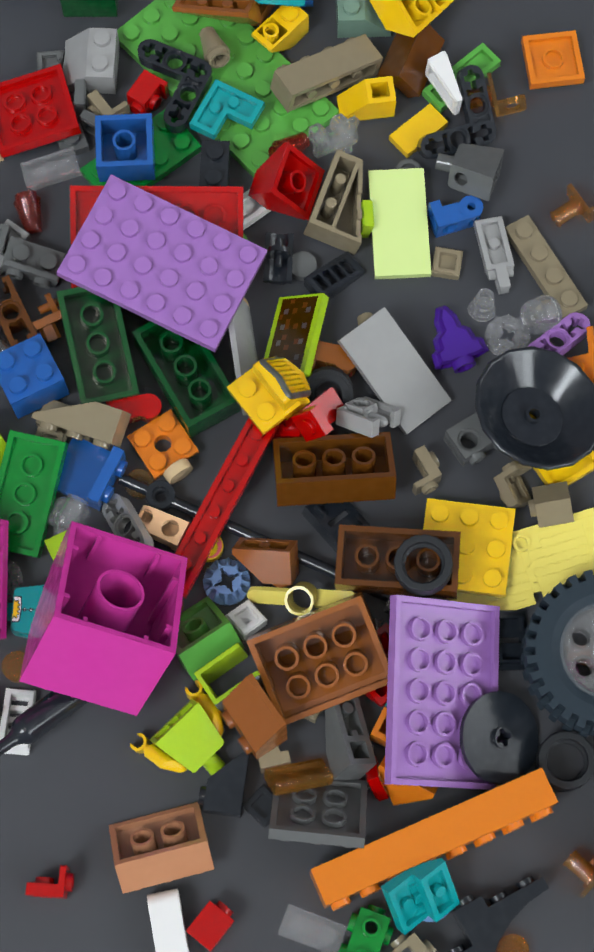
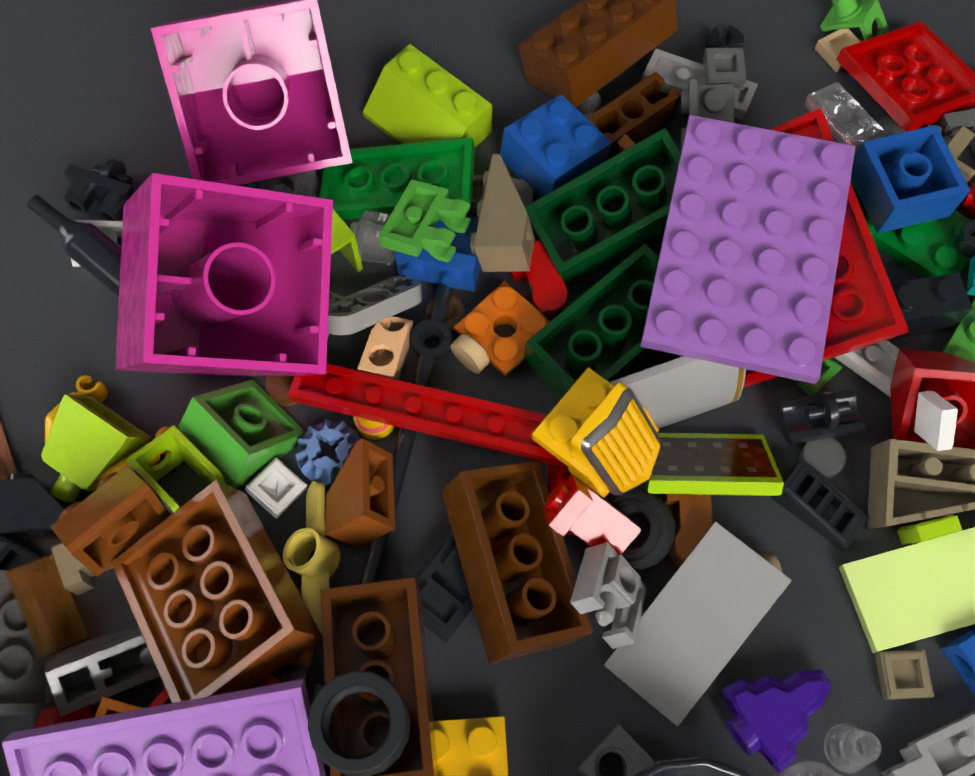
camera: 80 degrees right, 5 degrees down
(29, 210) = (778, 107): clear red cone -> none
(76, 480) = (414, 219): none -> bright green plate
(304, 191) = (935, 420): none -> white tile
(428, 466) = (560, 708): dark tan bracket -> none

